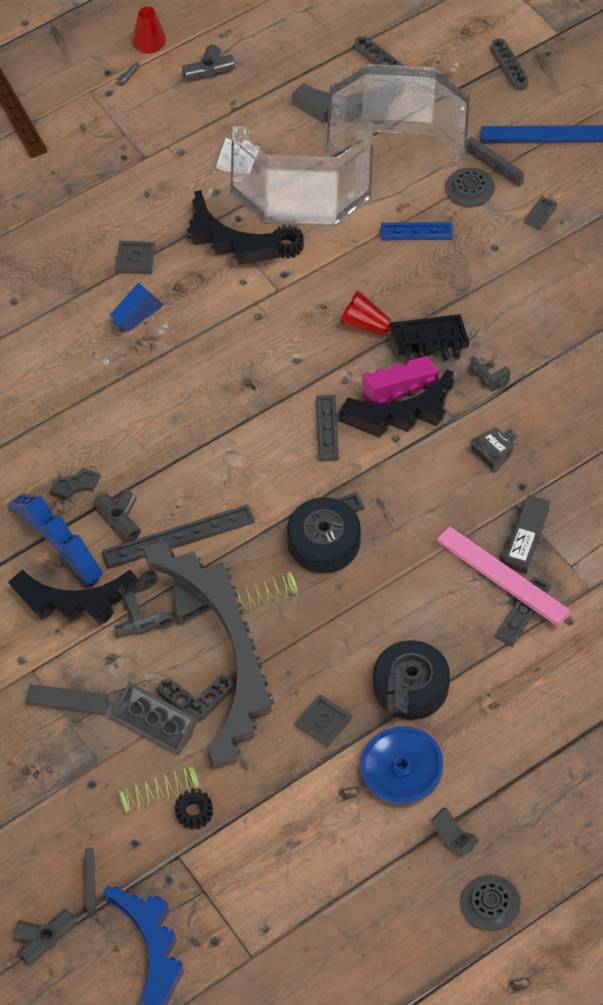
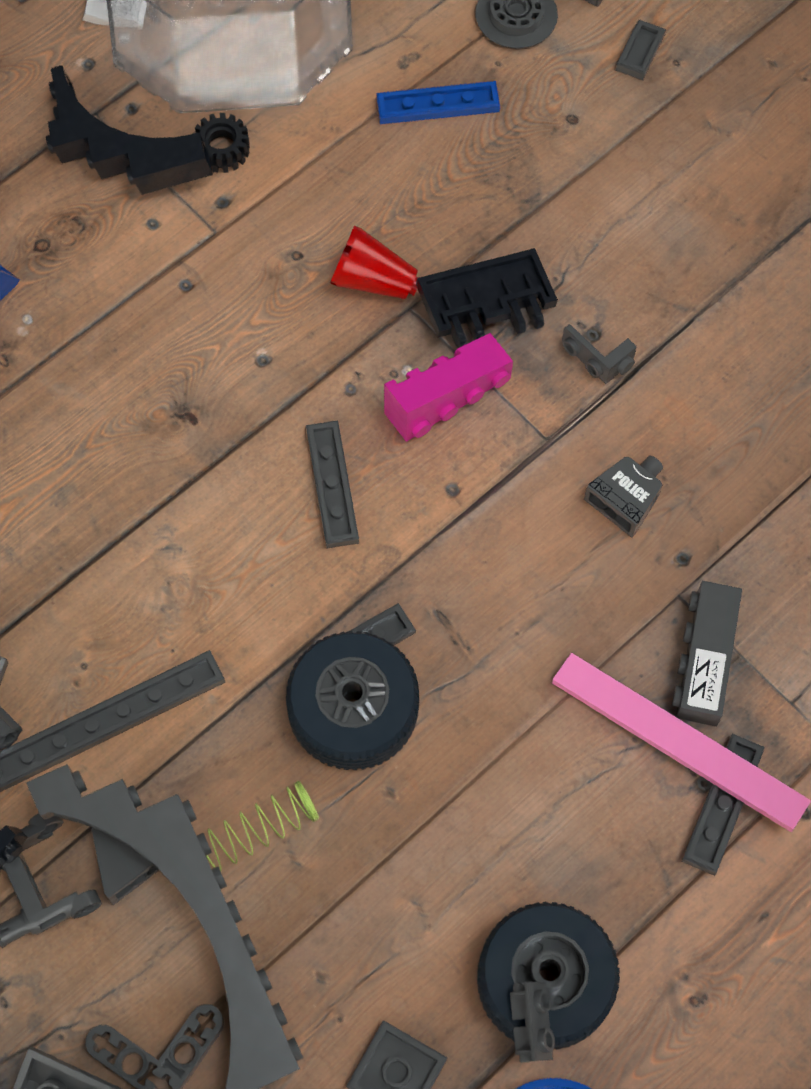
camera: 10 degrees left, 10 degrees up
(376, 417) = (417, 456): black arch -> none

